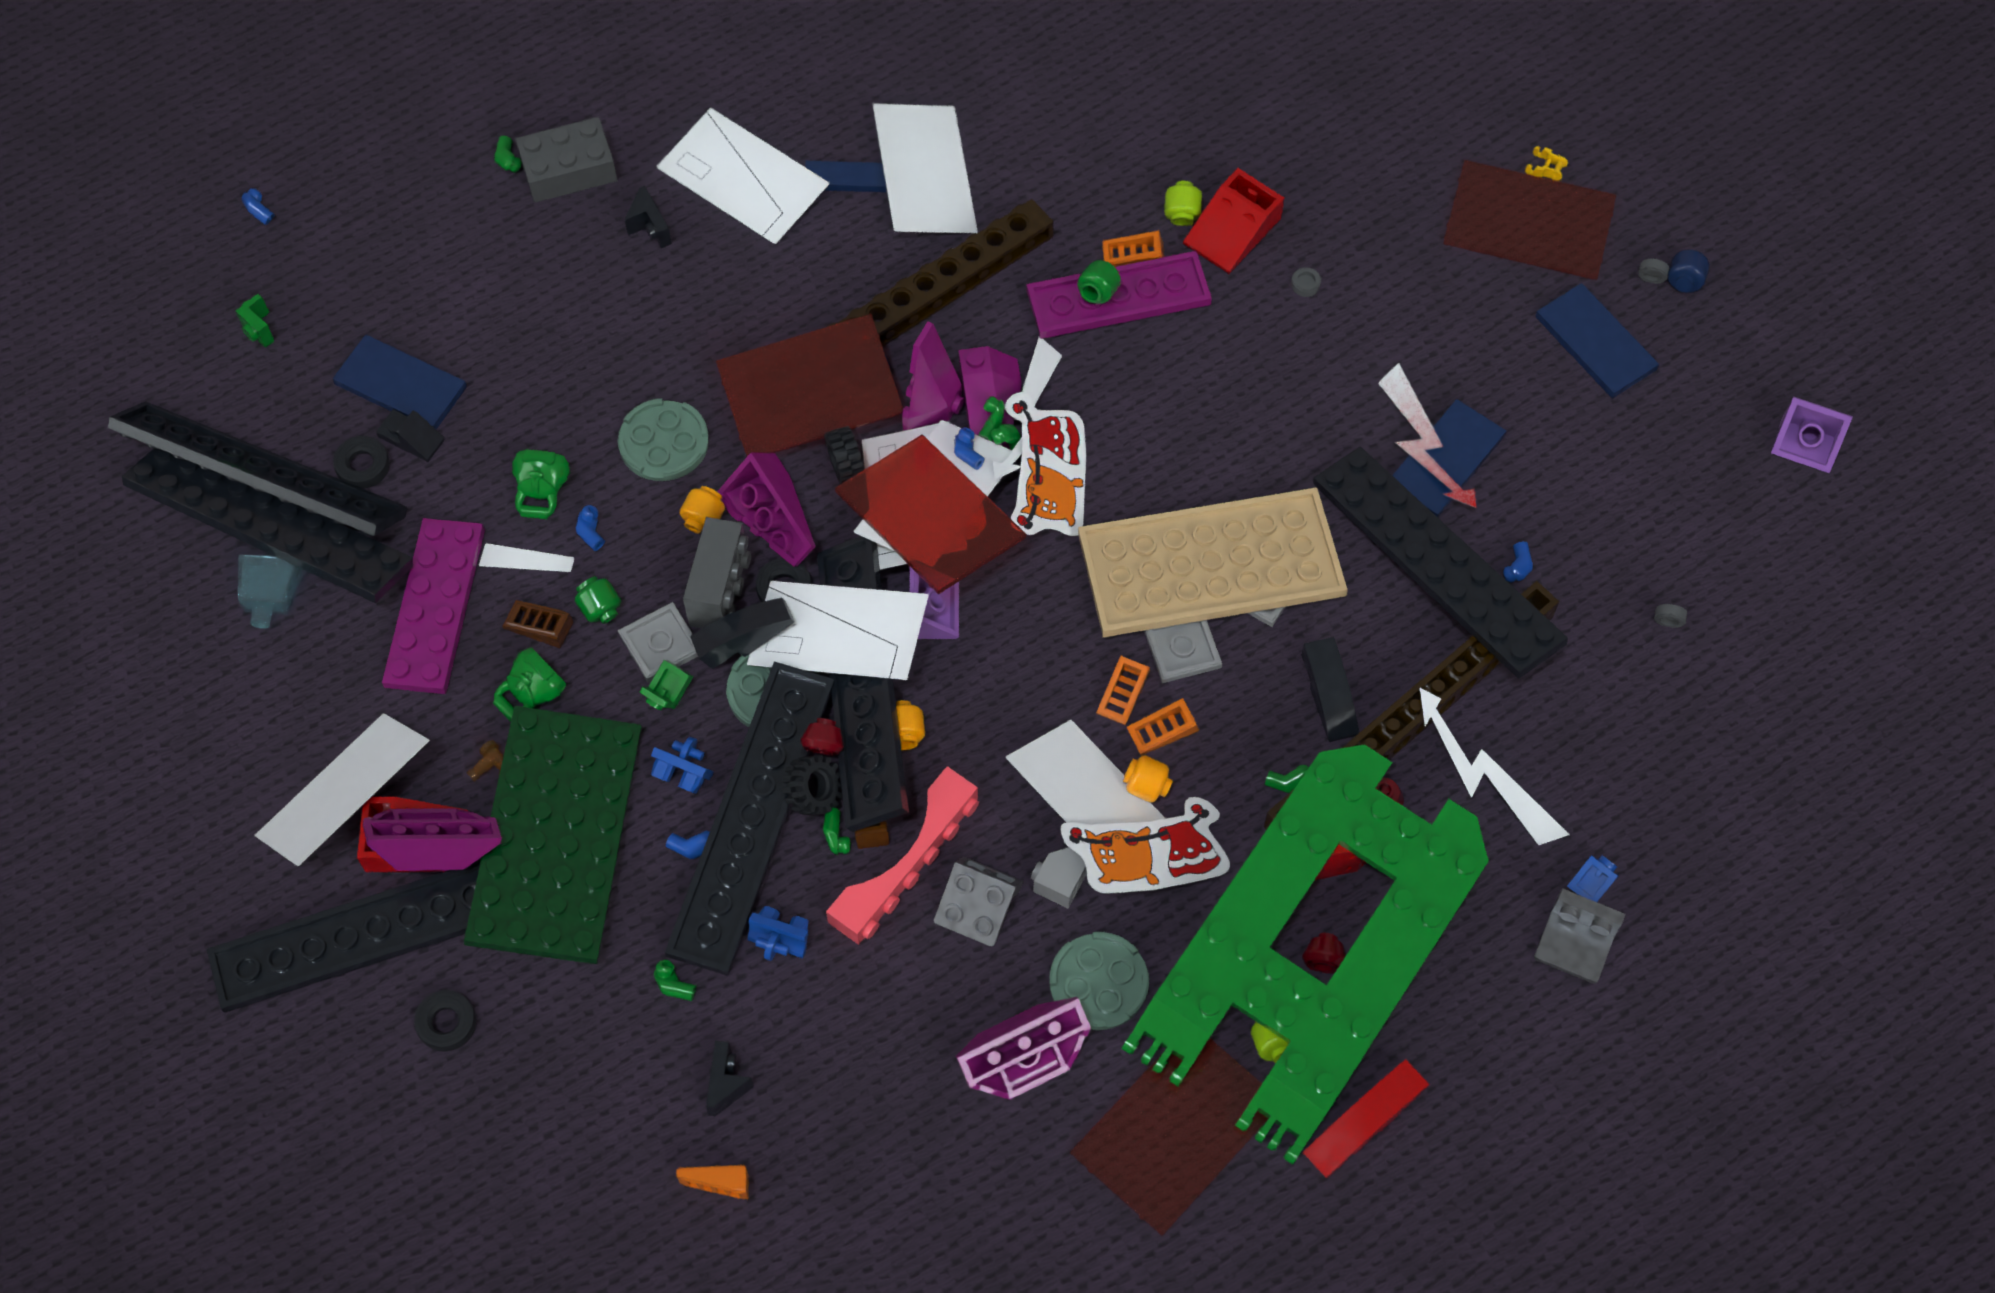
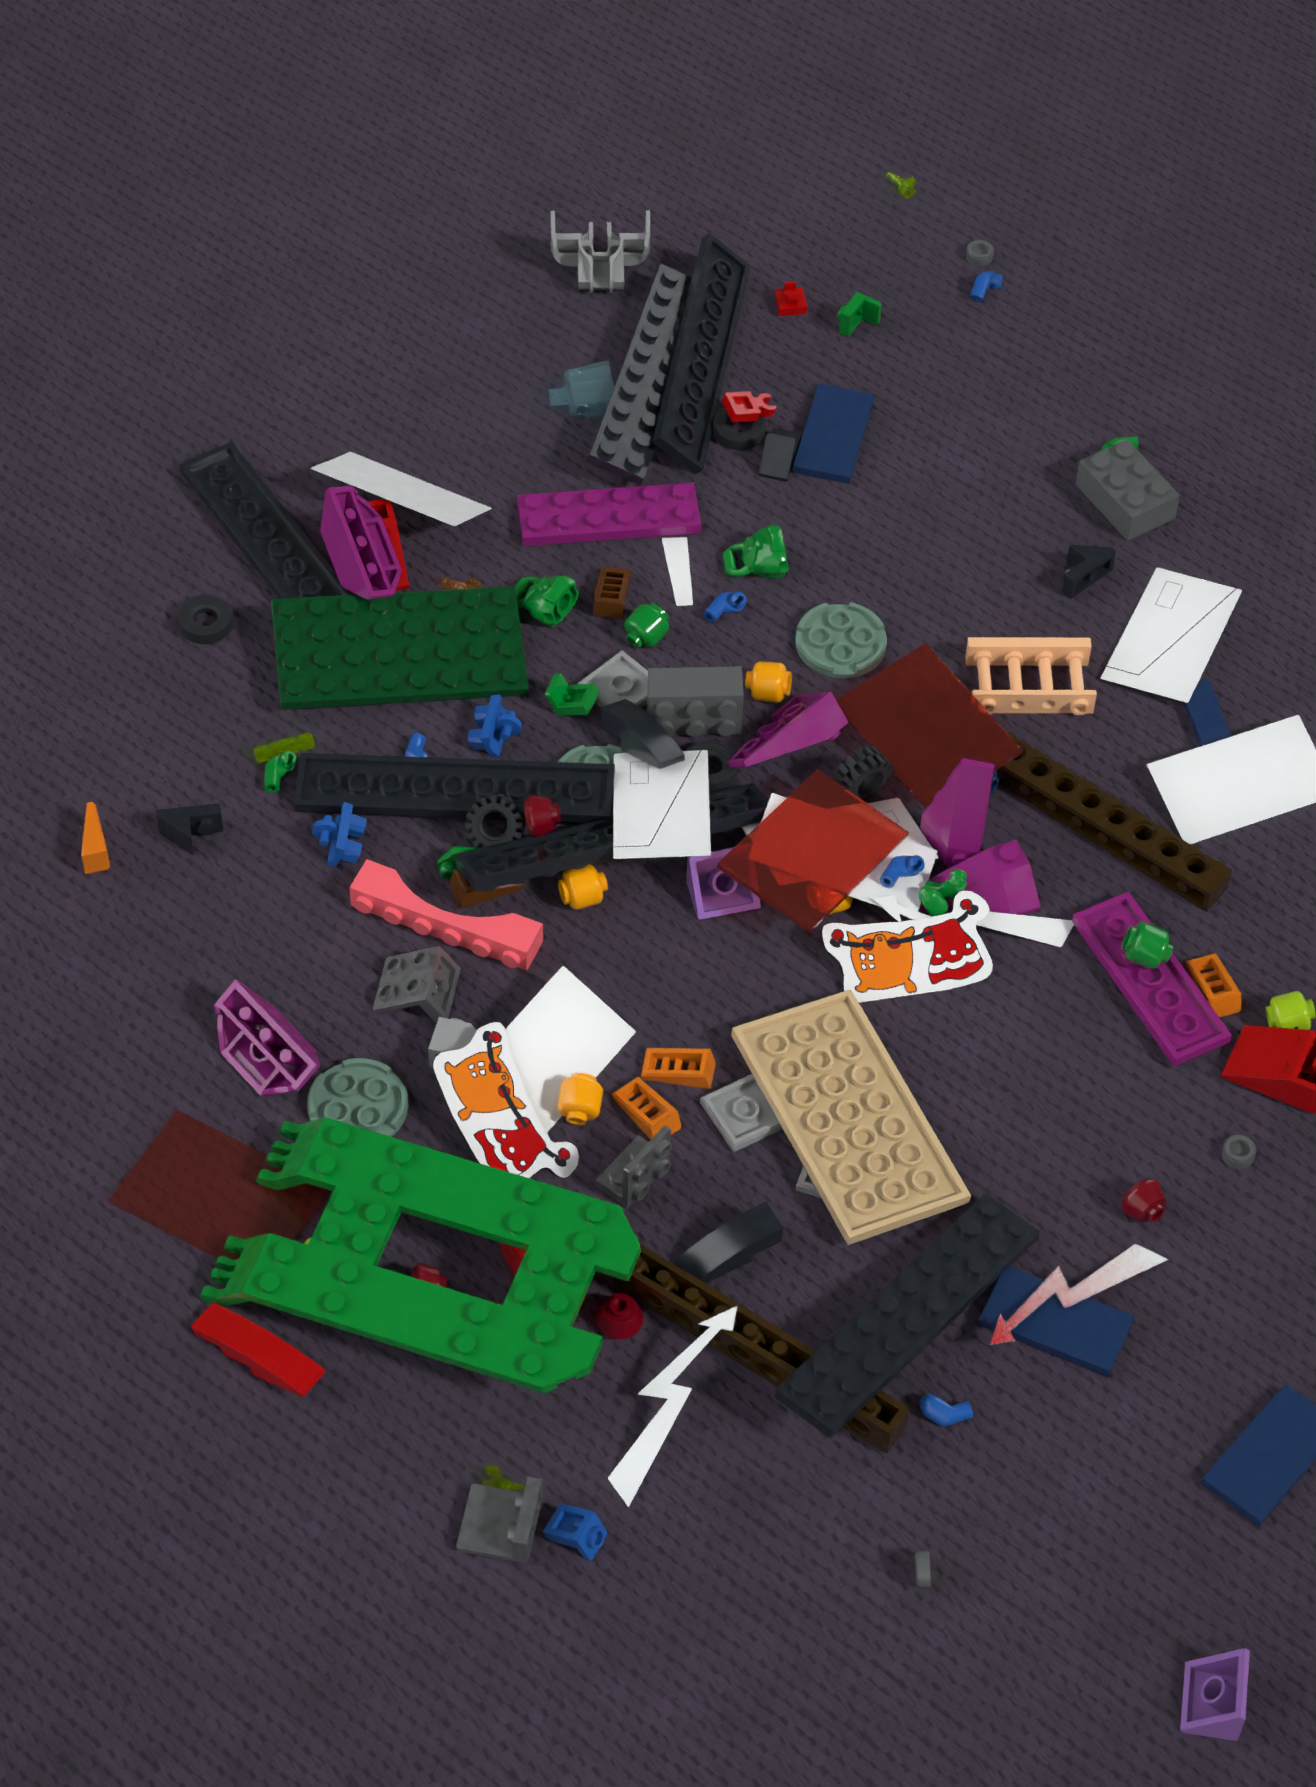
camera: 75 degrees right, 10 degrees down
(91, 236) = (905, 185): none -> clear neon green hand
(101, 531) = (600, 269): none -> light grey piece
(208, 378) = (790, 300): none -> red tile
(209, 201) = (979, 253): none -> dark grey tile
(350, 444) = (745, 407): none -> red plate
(644, 971) = (303, 742): none -> clear neon green axle
(739, 277) = (1031, 652): none -> light nougat fence
(1234, 746) = (636, 1167): none -> flat silver bracket
(1348, 360) = (1144, 1201): none -> dark red cone
(1535, 928) = (499, 1481): none -> clear neon green hand

